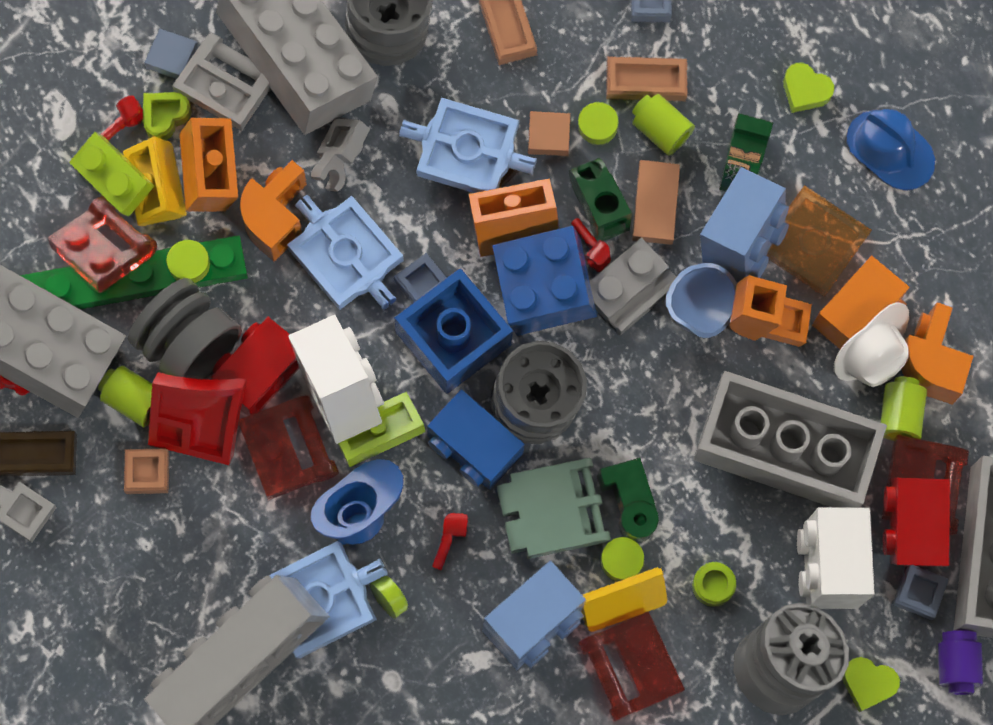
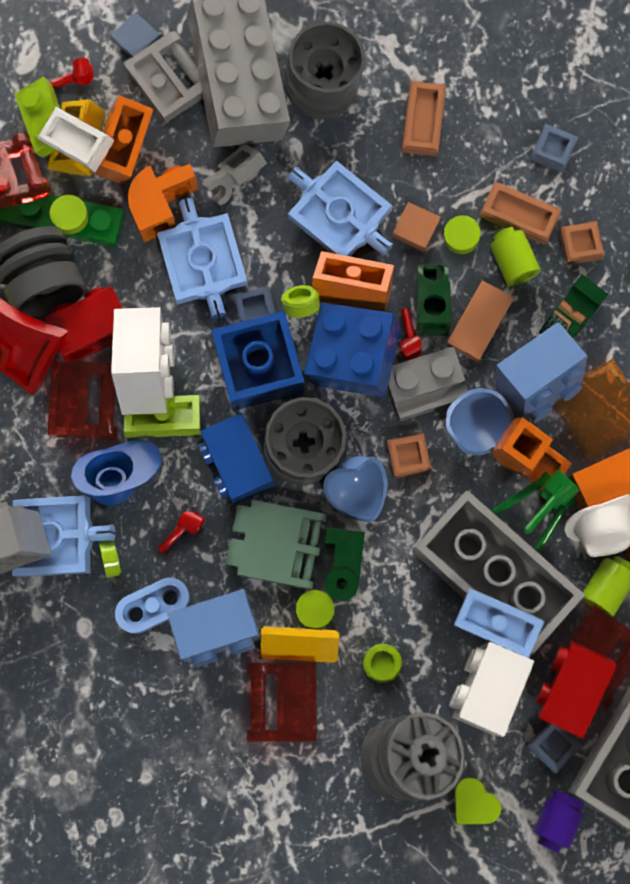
camera: 30 degrees right, 5 degrees up
(164, 112) = (108, 83): lime tile -> none
(164, 181) = (75, 139): none -> white tile
(454, 625) = (152, 604): none -> light blue plate
(471, 252) = (300, 301): none -> lime tile
(611, 418) = (357, 488): none -> medium blue helmet
(645, 365) = (408, 455): none -> nougat tile
(720, 84) = (581, 243): none -> nougat tile
(815, 339) = (557, 491): none -> green plant
(817, 486) = (499, 623): none -> light blue plate

